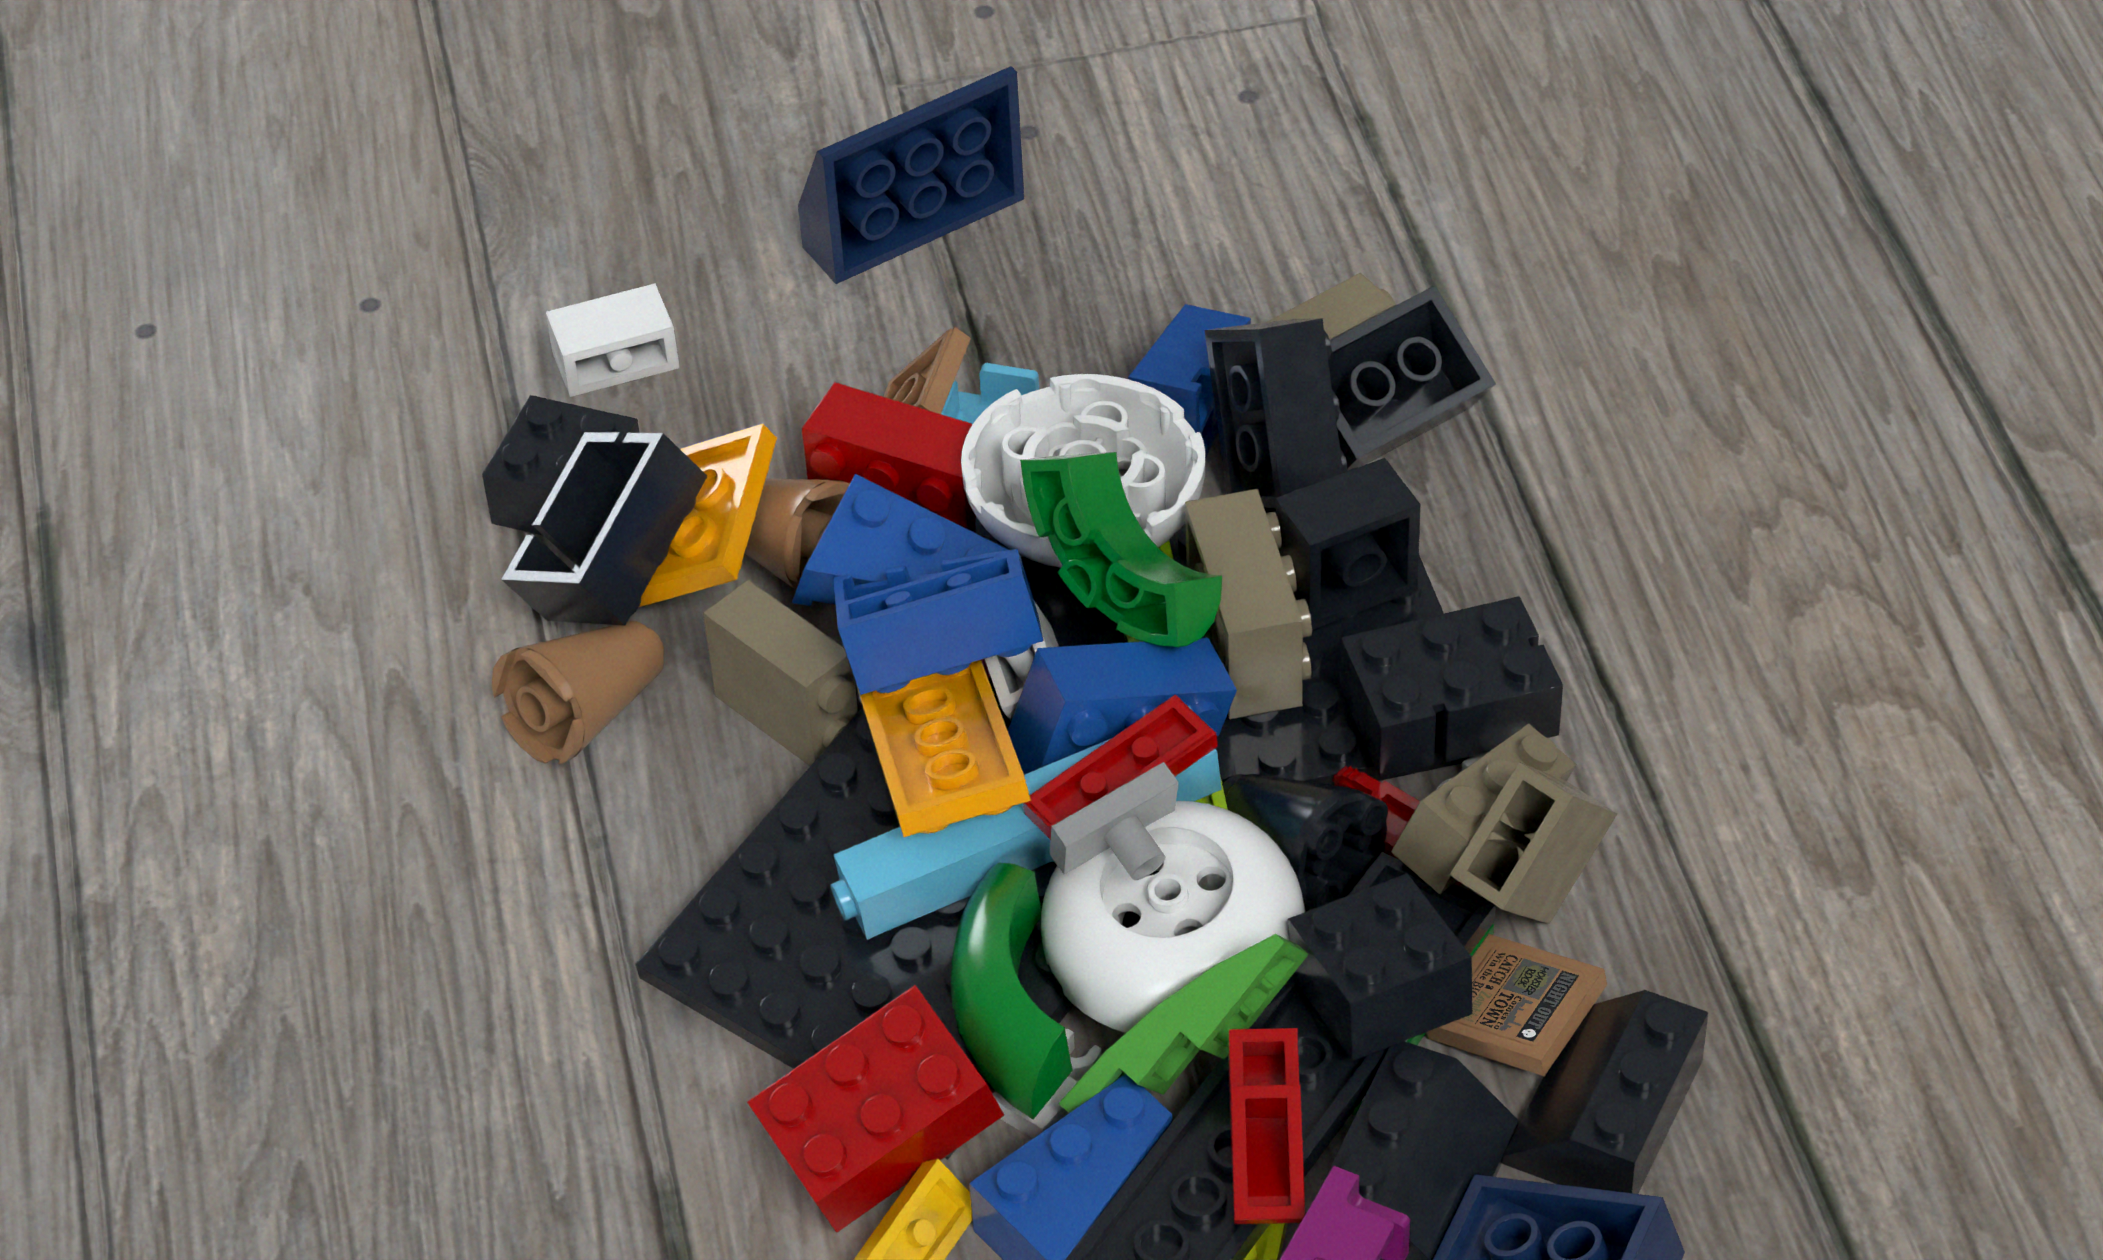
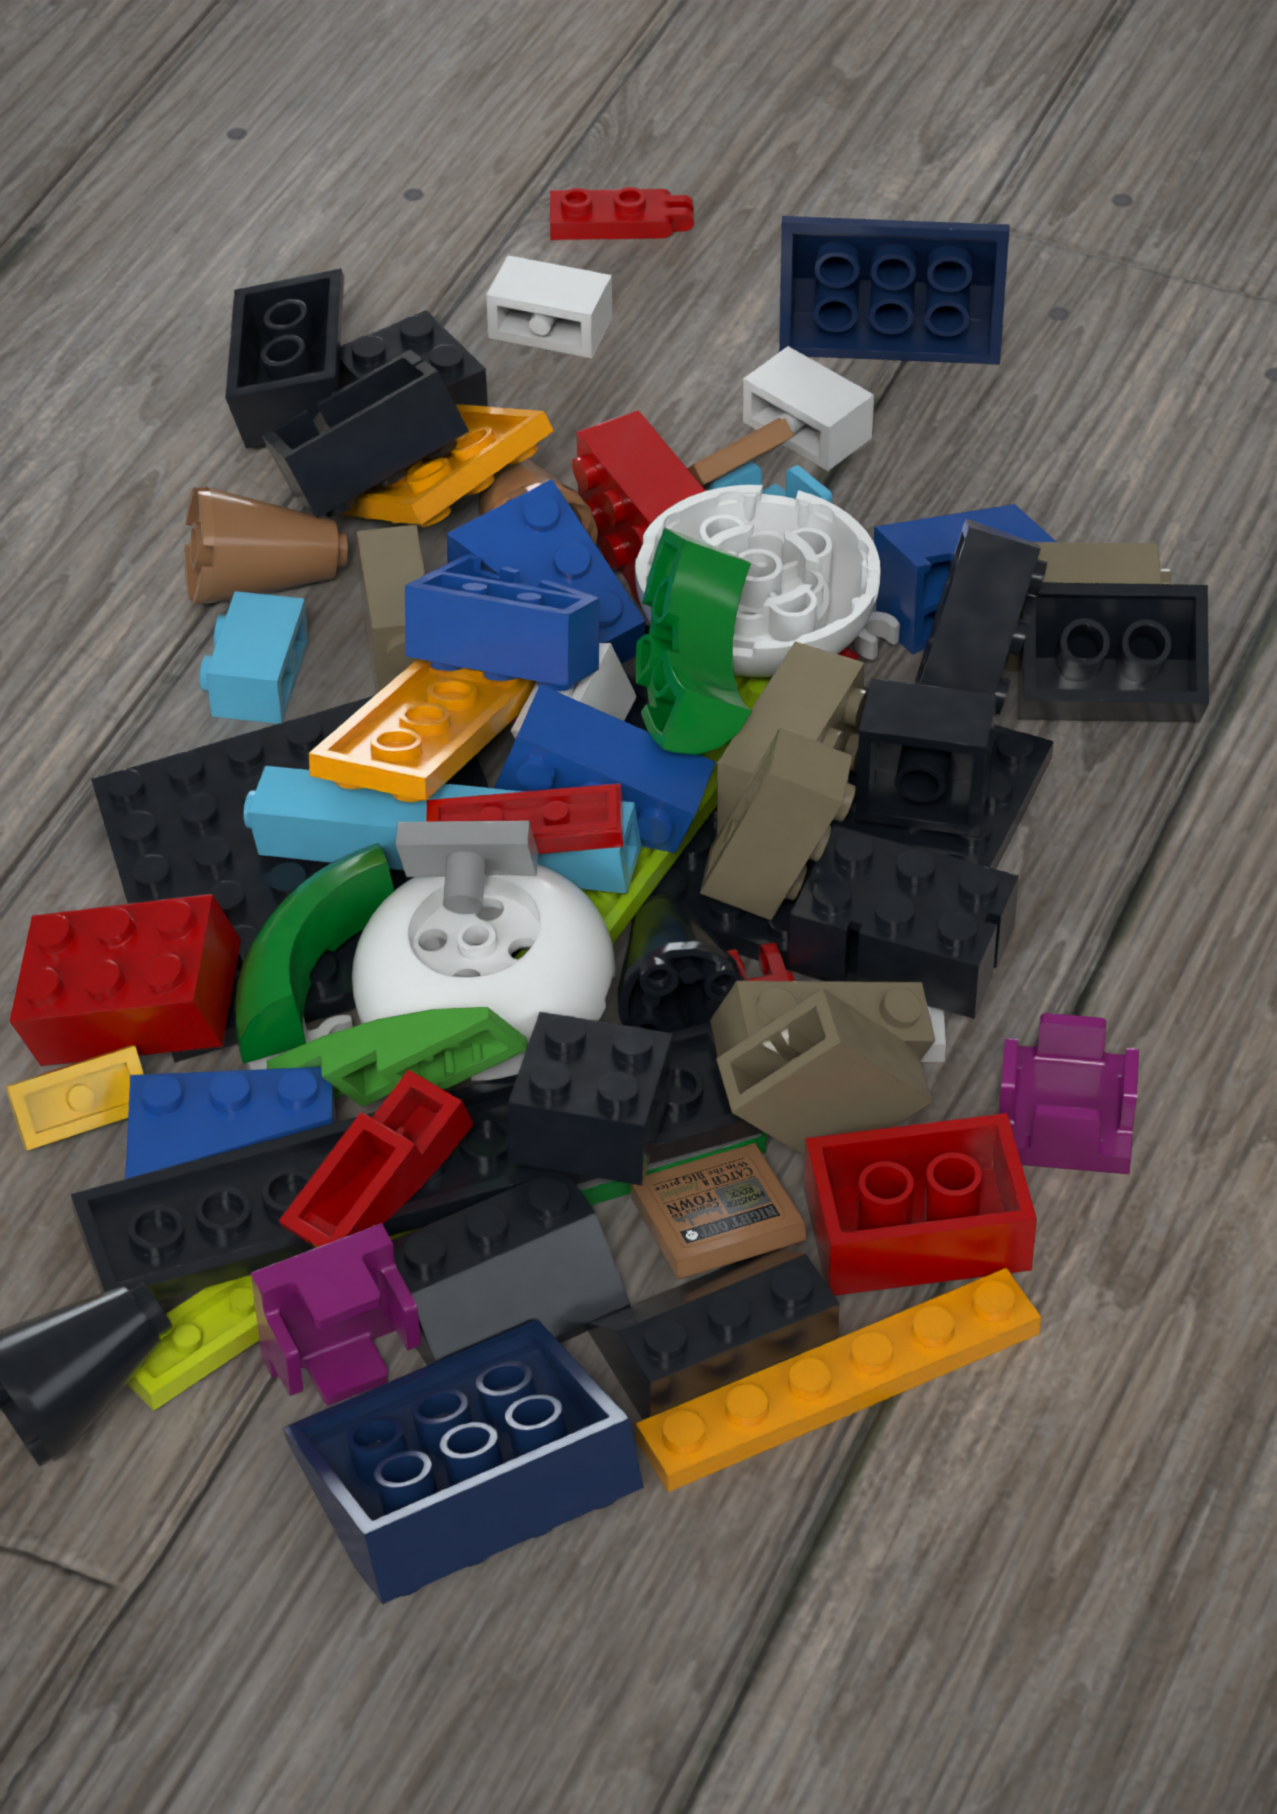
camera: 35 degrees right, 0 degrees up
(443, 497) = (283, 350): none -> black slope
(577, 231) = (618, 214): none -> red hinge
(674, 777) = (255, 657): none -> medium azure brick
(913, 308) = (821, 407): none -> white brick
(1311, 660) = (778, 824): none -> dark tan brick
(1672, 899) = (919, 1204): none -> red brick
(1683, 757) = (1070, 1097): none -> magenta panel
(1733, 1071) = (837, 1379): none -> light orange plate

